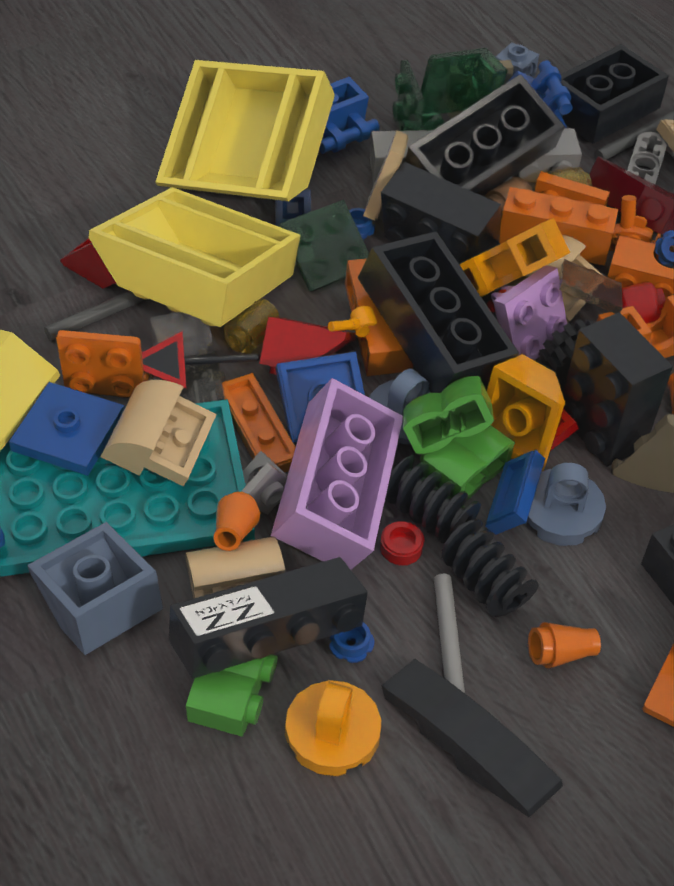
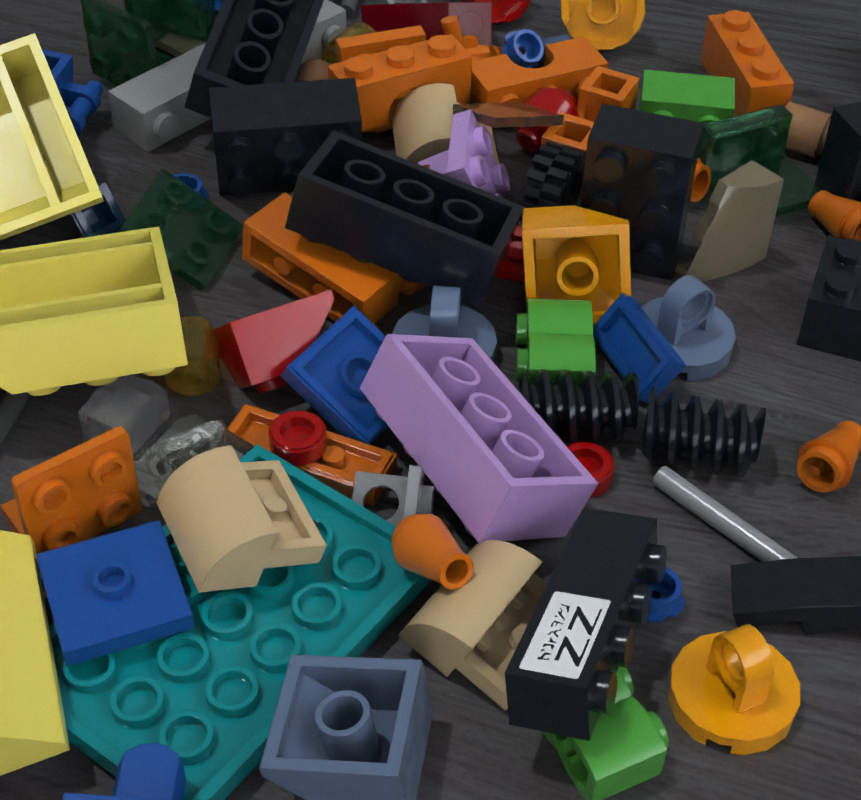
camera: 40 degrees left, 5 degrees down
(168, 360) = (154, 445): piece -> none
(252, 410) = (298, 437): none -> red tile
(359, 321) = (327, 272): light orange hand -> none
(388, 169) = (182, 121): tan tile -> none
(438, 417) = (523, 302): bright green brick -> none
(516, 257) = (425, 112): light orange arch -> none

